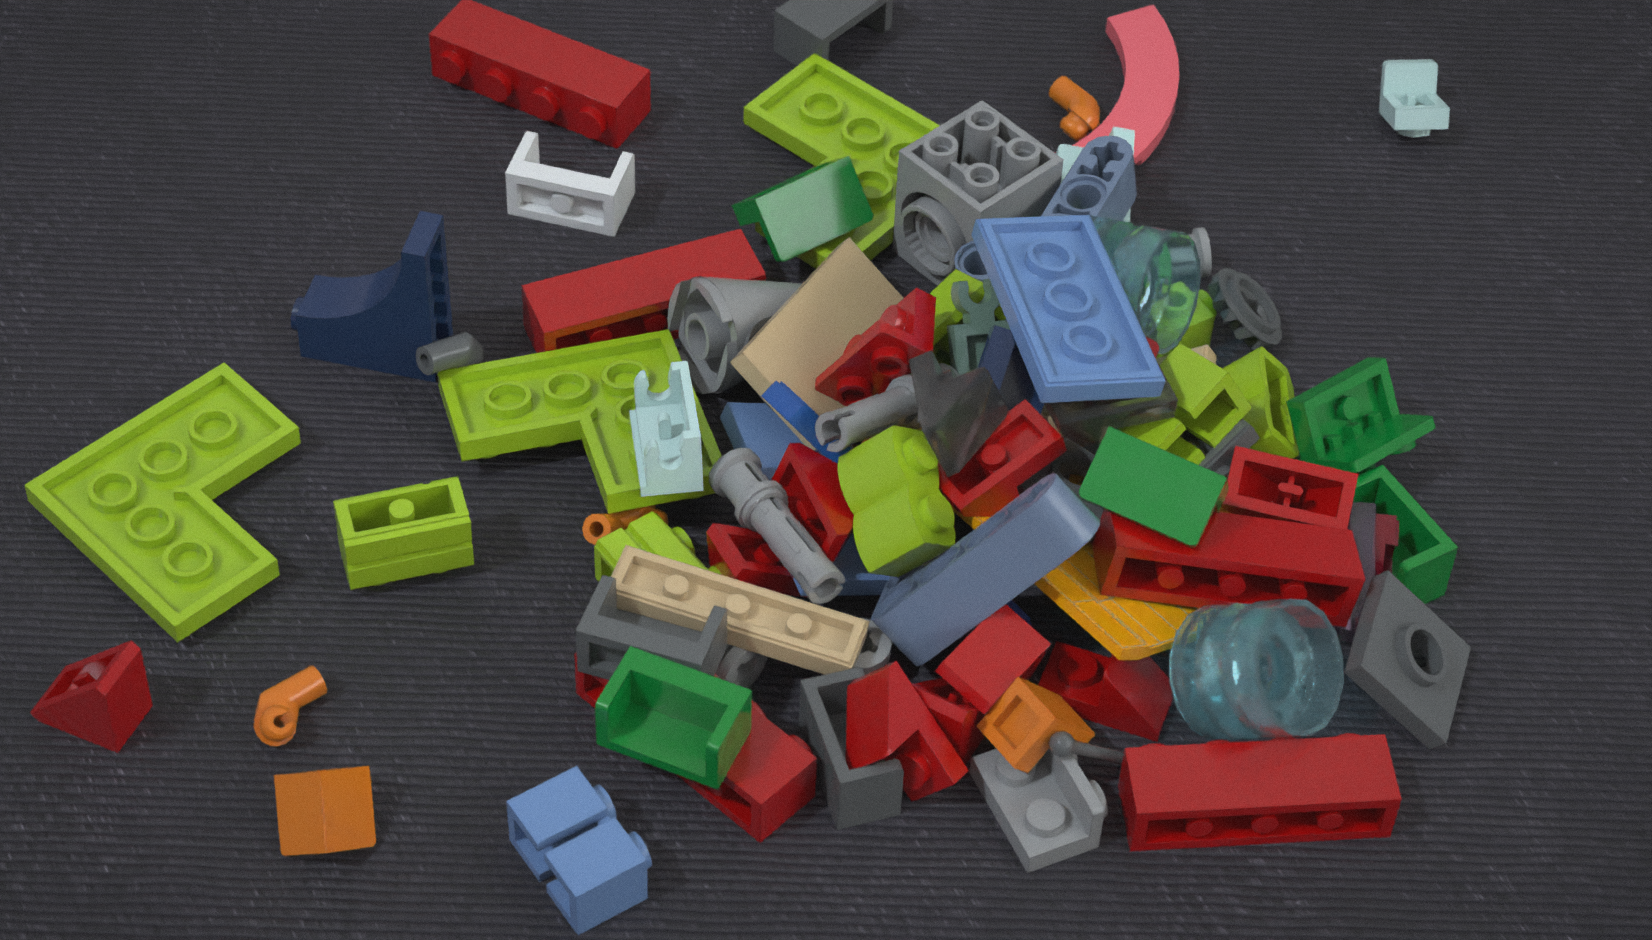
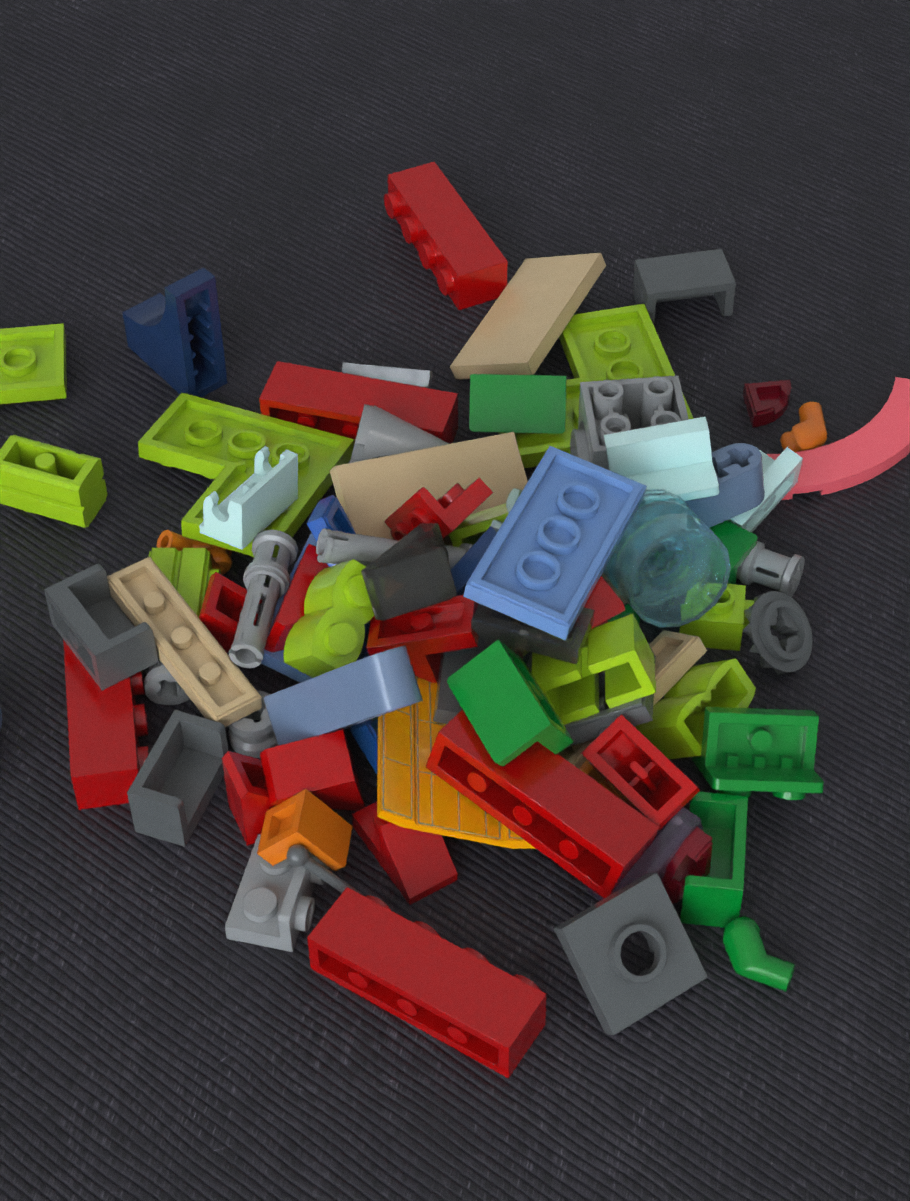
camera: 40 degrees right, 0 degrees up
(449, 353) = (199, 384): dark grey arm -> none
(567, 195) = (386, 320): white panel -> none
(663, 238) = (400, 375): none -> flat silver tile
(673, 717) = (60, 684): green panel -> none
(715, 120) = (529, 316): none -> tan tile
(892, 723) = (203, 768): red slope -> none
(1009, 95) = (766, 401): none -> dark red tile
(1056, 182) = (666, 458): none -> light aqua panel
(1257, 670) = (511, 904): clear light blue wheel -> none
(1486, 608) = (750, 958): none -> green arm

